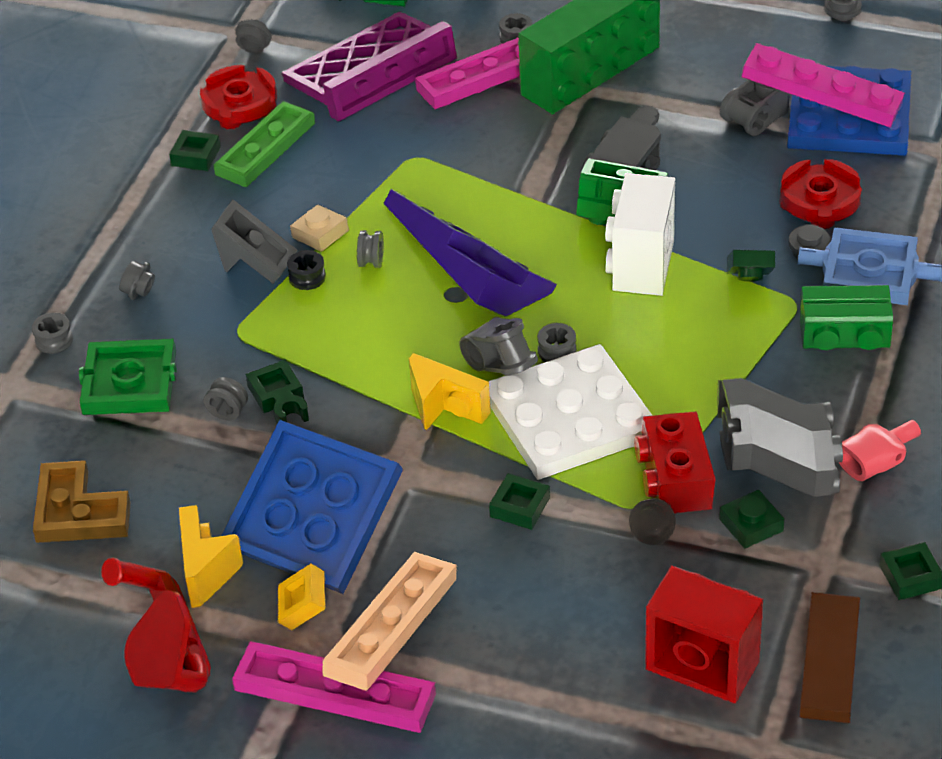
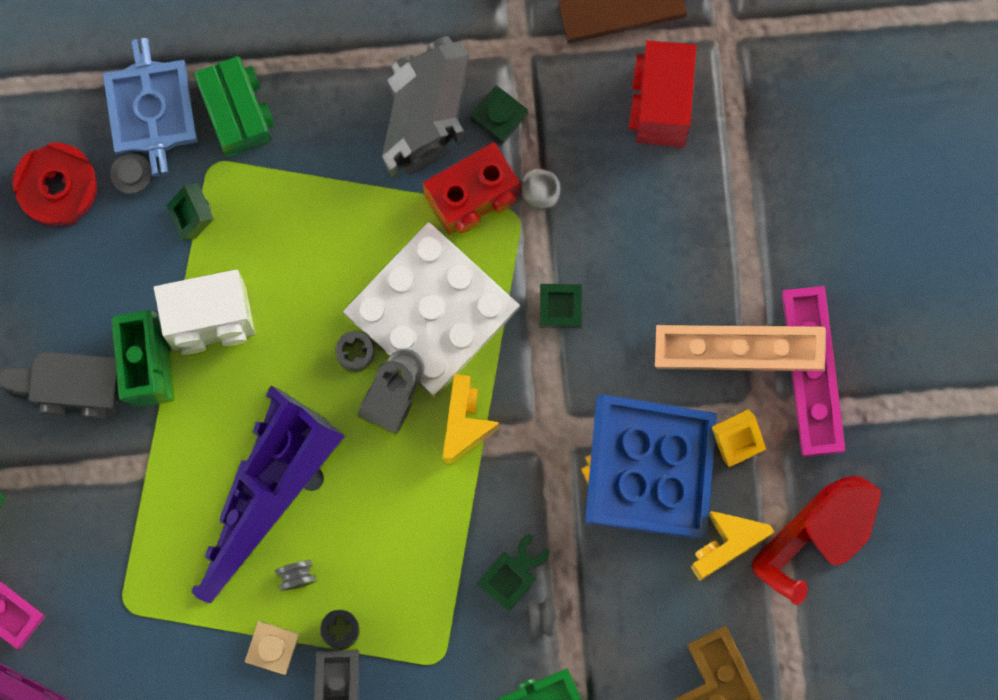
camera: 115 degrees left, 35 degrees up
(876, 449) = (385, 34): coral piece -> none

